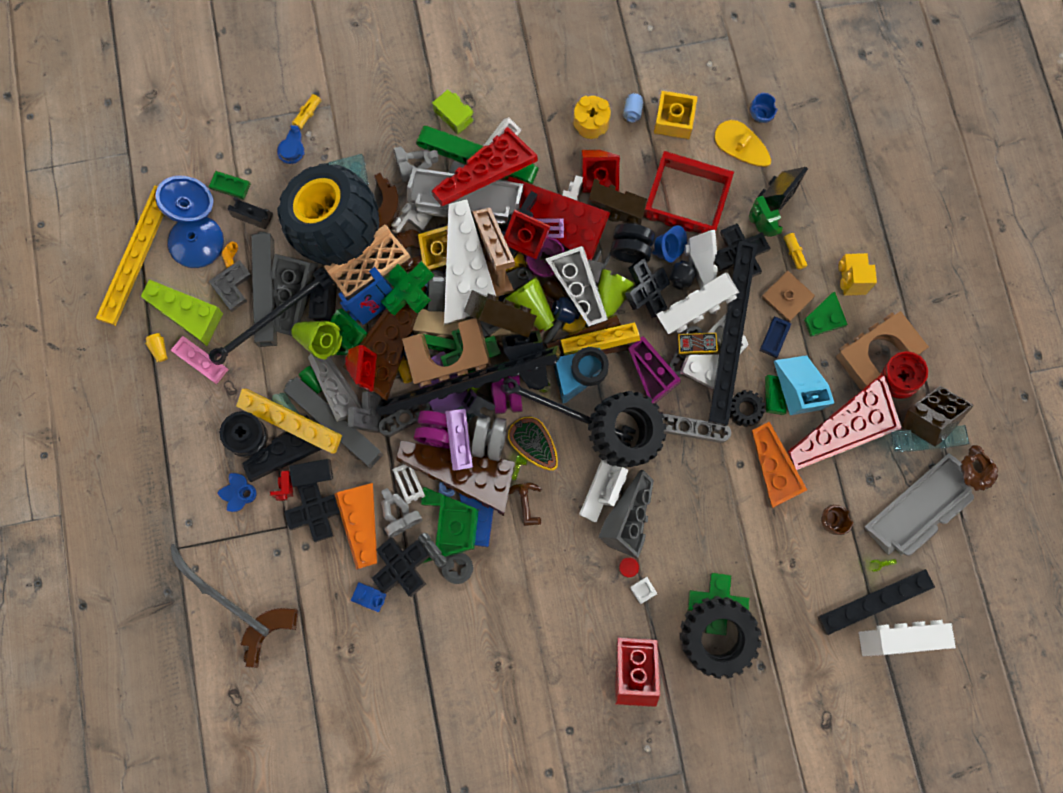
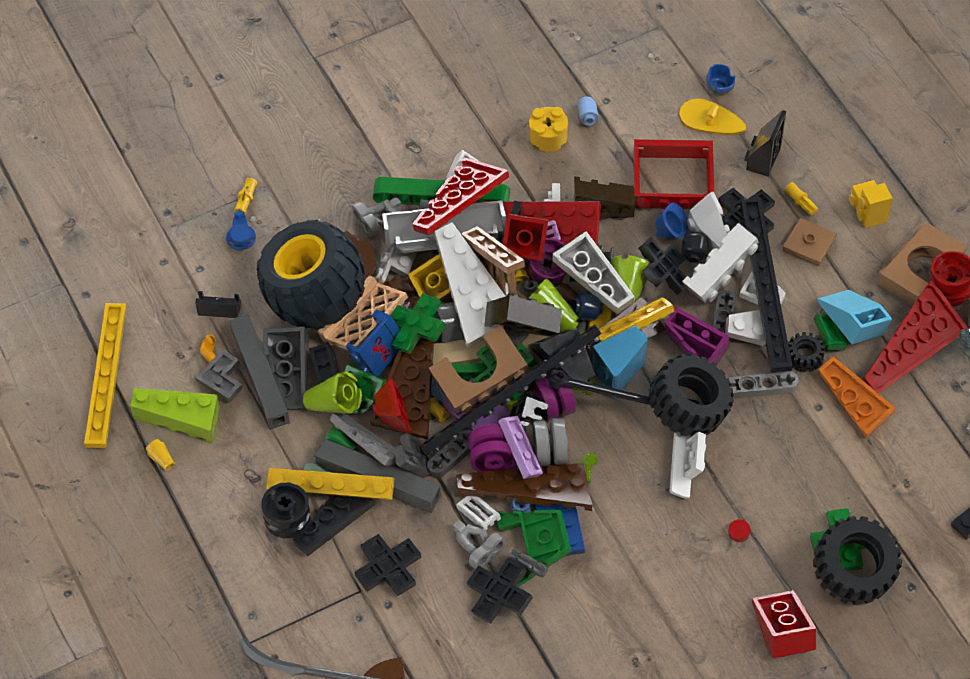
camera: 15 degrees left, 20 degrees down
(185, 192) = (144, 306): blue dish -> none
(198, 359) = (211, 455): bright pink plate -> none
(201, 249) = (168, 355): blue dish -> none
(229, 185) = (186, 284): green plate -> none
(235, 492) = (293, 571): blue plate -> none
(285, 485) = (348, 552): red bracket -> none
(311, 472) = (370, 526): black hinge -> none
(321, 278) = (319, 340): black hinge -> none
(358, 518) = (438, 559): orange wing -> none
(368, 597) = (474, 629): blue bracket -> none
(453, 111) = (401, 159): lime brick -> none
(466, 571) = (559, 569): dark grey gear -> none
(523, 491) = (602, 484): reddish brown piece -> none
(533, 442) = (597, 438): shield -> none
(592, 351) = (637, 328): black tyre -> none
(601, 166) = (567, 167): red slope -> none
(626, 521) = (720, 486): dark grey wedge -> none
(632, 243) = (631, 228): black wheel -> none
(643, 590) = (762, 548): white tile -> none
(675, 114) = (633, 105): yellow brick -> none
(697, 343) = (733, 303): tile -> none
(764, 219) = (759, 174): green slope -> none
(775, 337) = (810, 281): dark blue tile -> none
(826, 317) = (855, 250): green wing -> none
(836, 520) = (935, 428): reddish brown hair -> none

